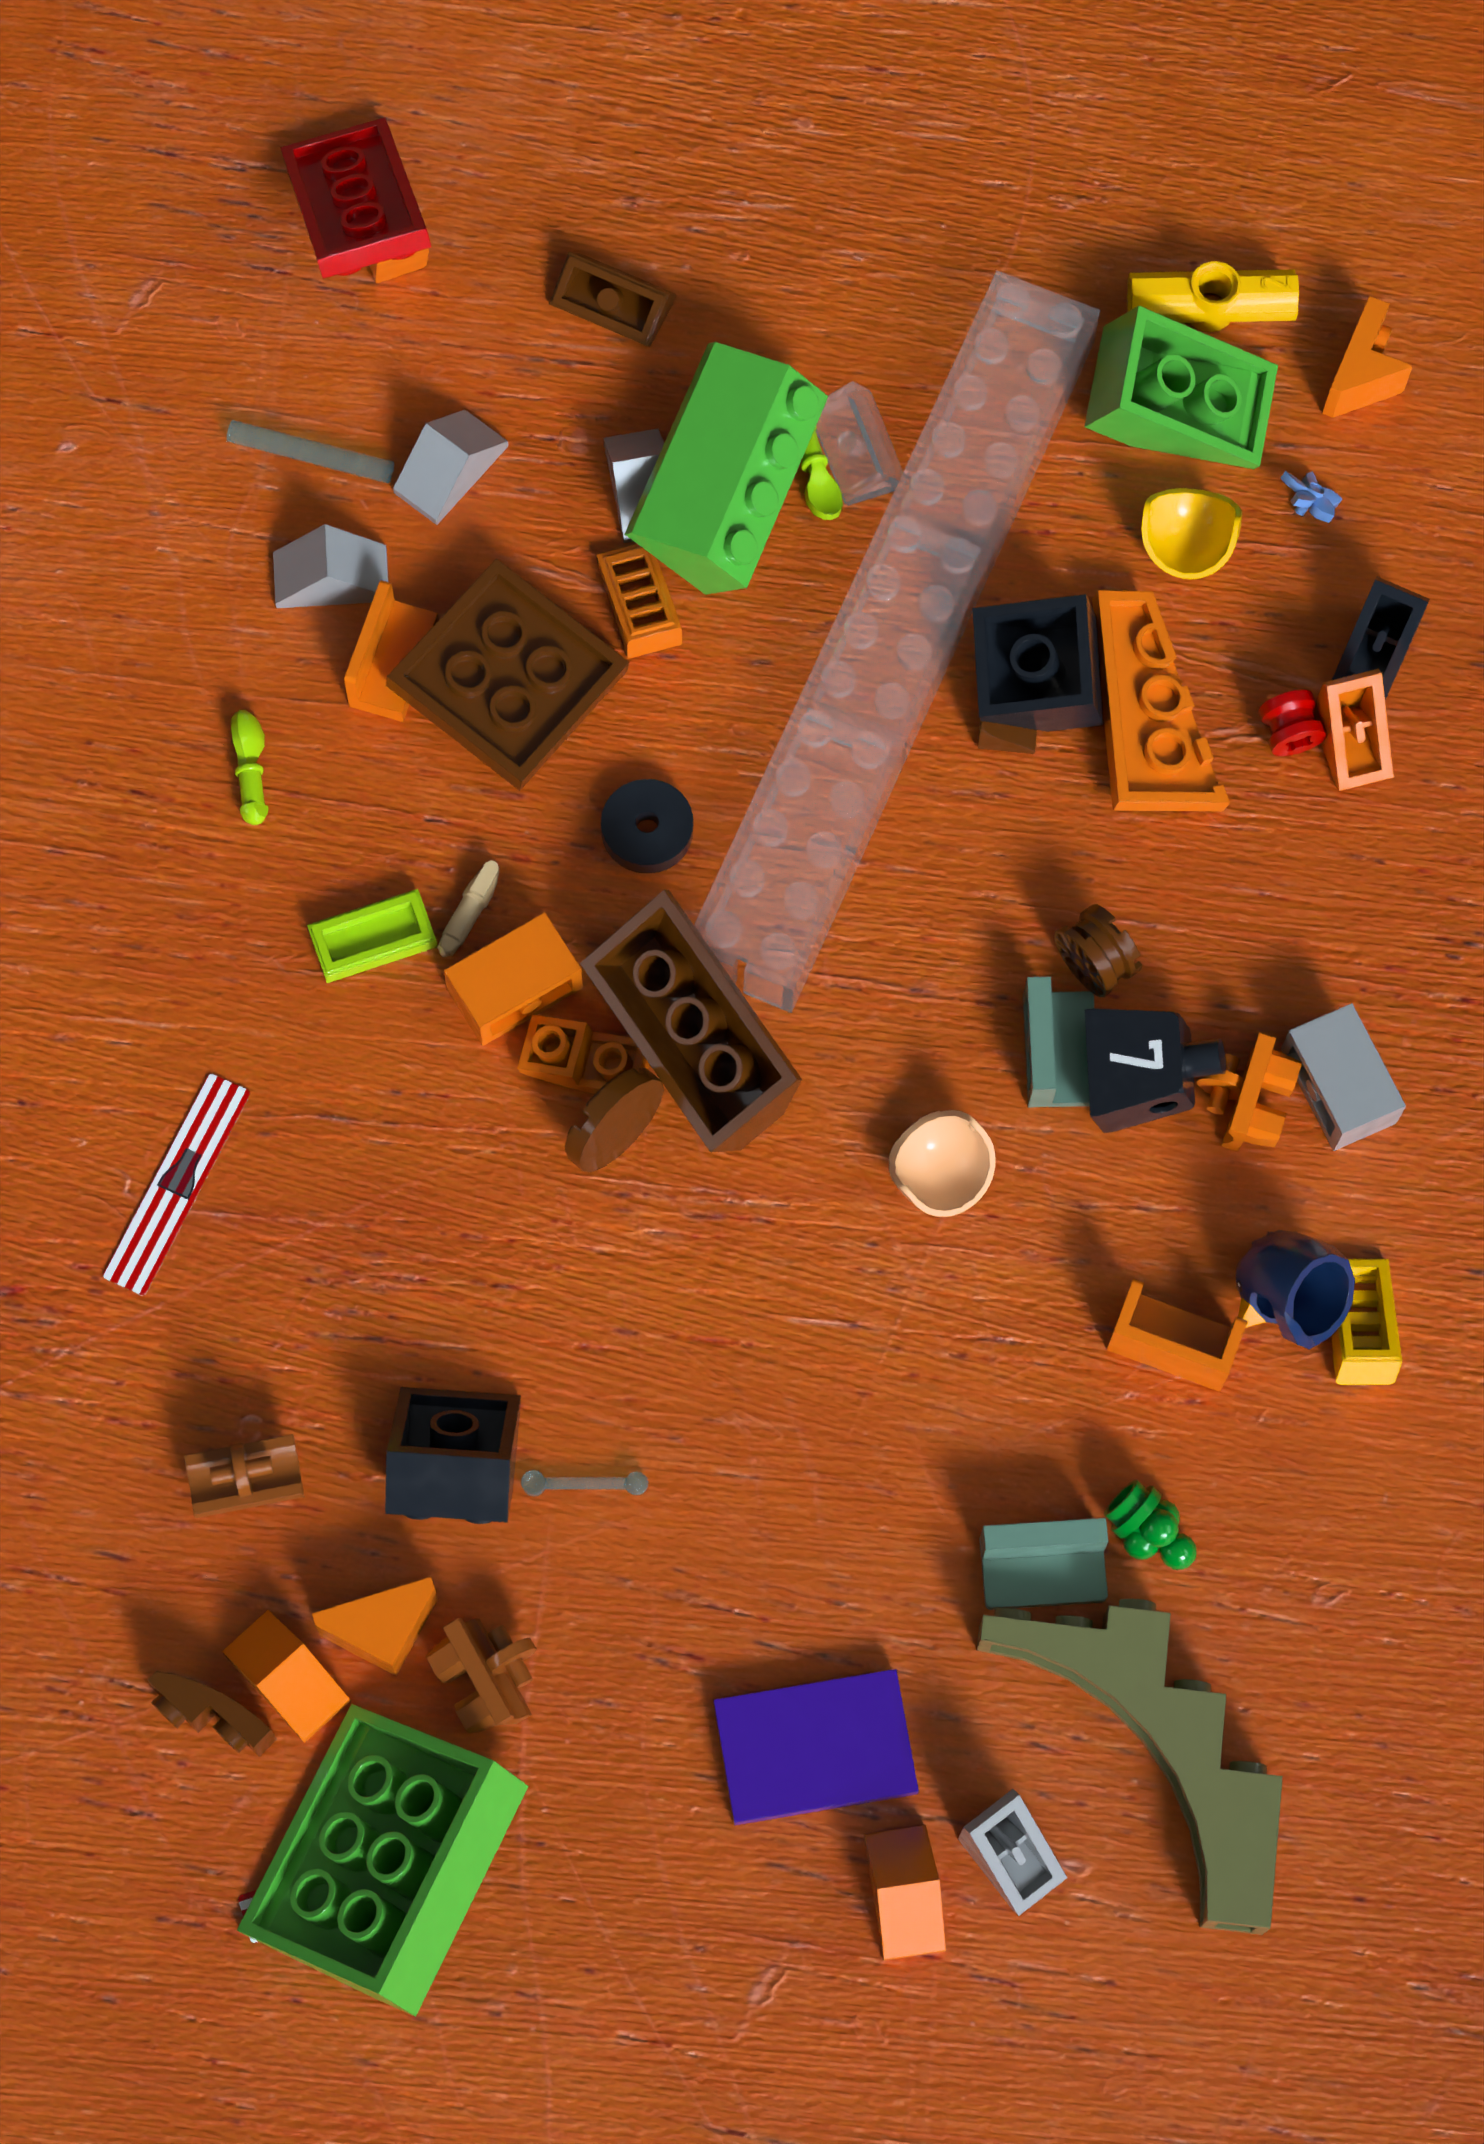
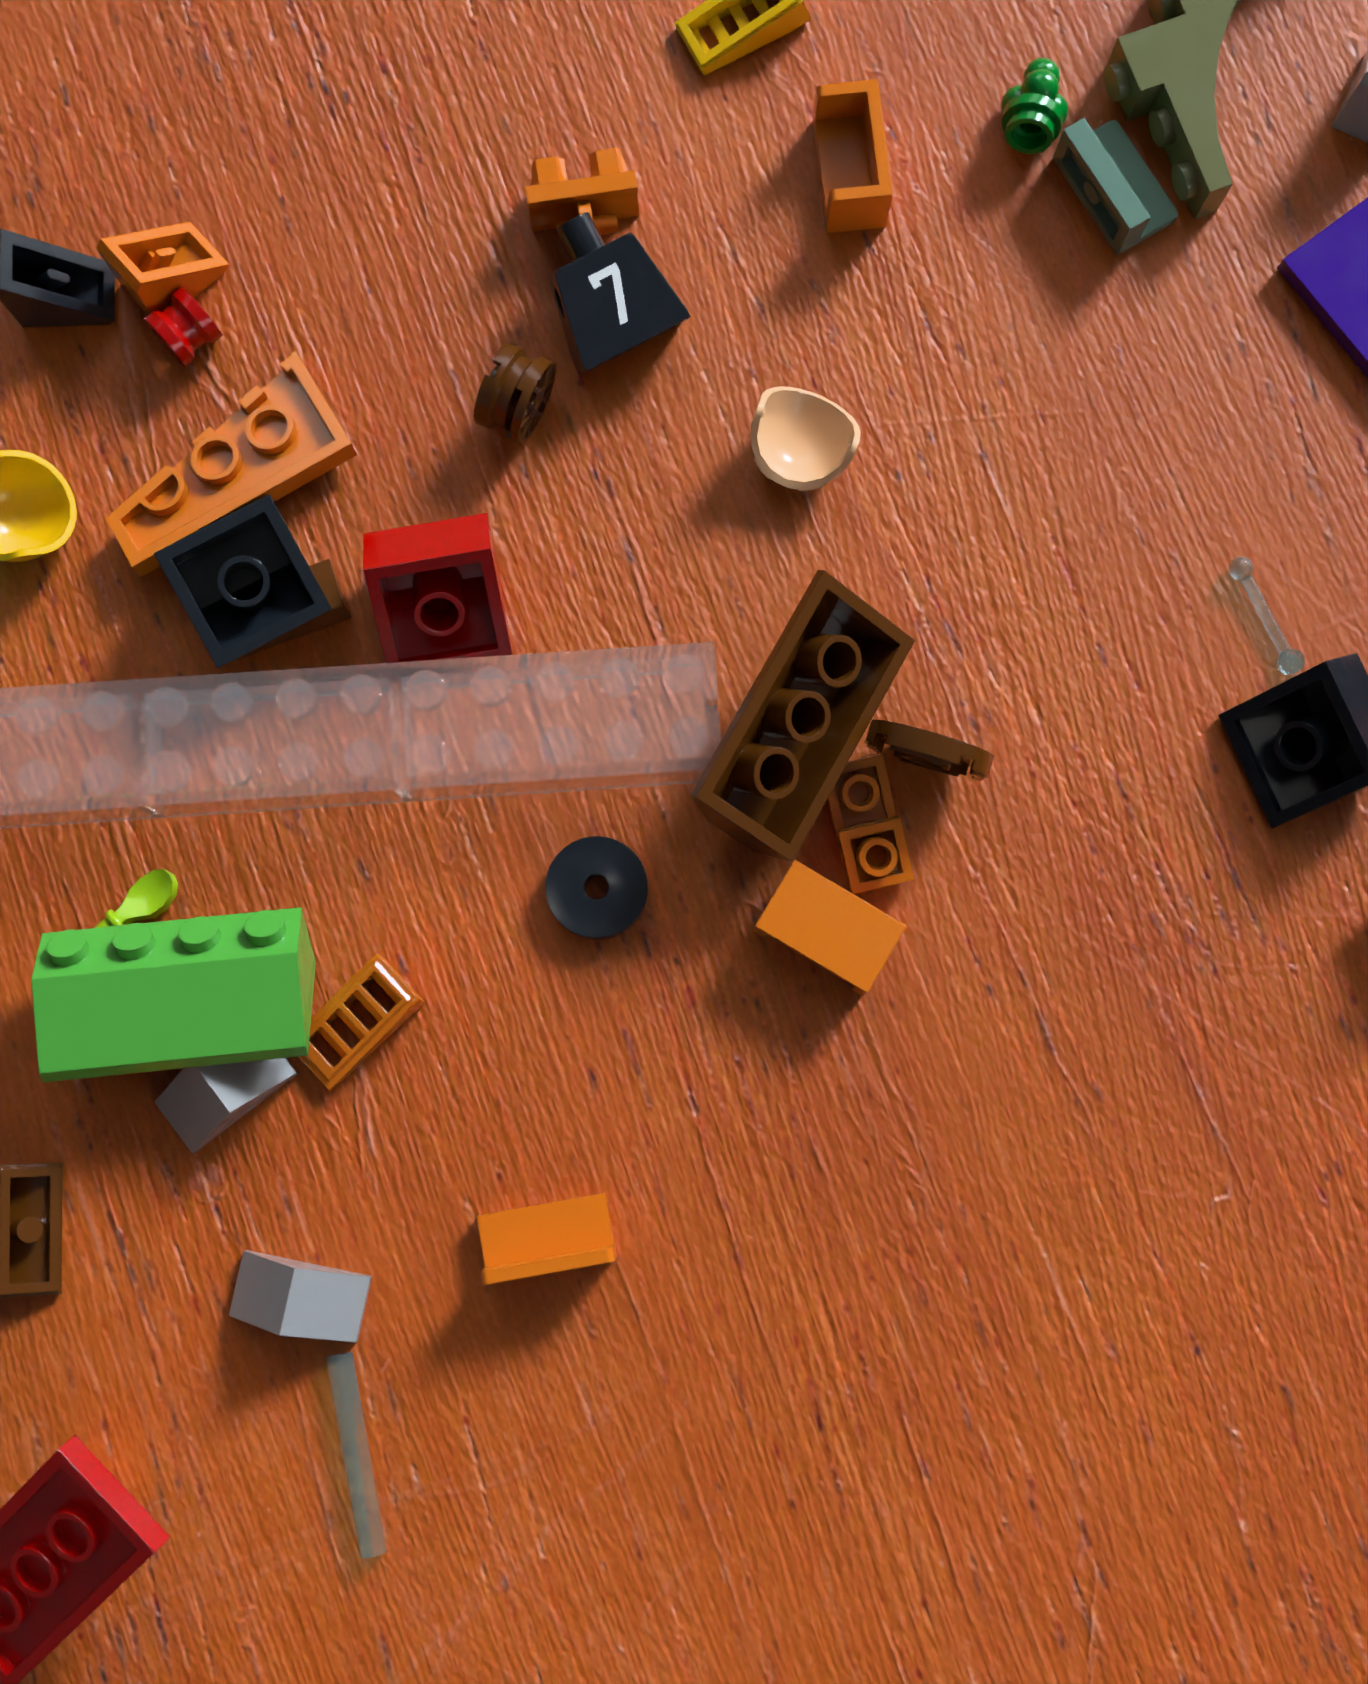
camera: 115 degrees left, 10 degrees up
(176, 1184) = (1193, 1150): sticker -> none
(249, 743) = (714, 1334): lime piece -> none
(328, 569) = (483, 1355): light grey slope -> none
(372, 936) = (850, 1096): lime tile -> none
(474, 900) = (759, 1016): tan piece -> none
(507, 674) = (511, 1105): reddish brown plate -> none
(857, 445) = (77, 887): clear slope -> none
(957, 812) = (437, 590): none -> red slope
(1055, 1045) = (623, 395): sand green panel -> none
(1295, 1284) = (750, 74): dark blue piece -> none
(1344, 1077) = (523, 119): light grey panel -> none

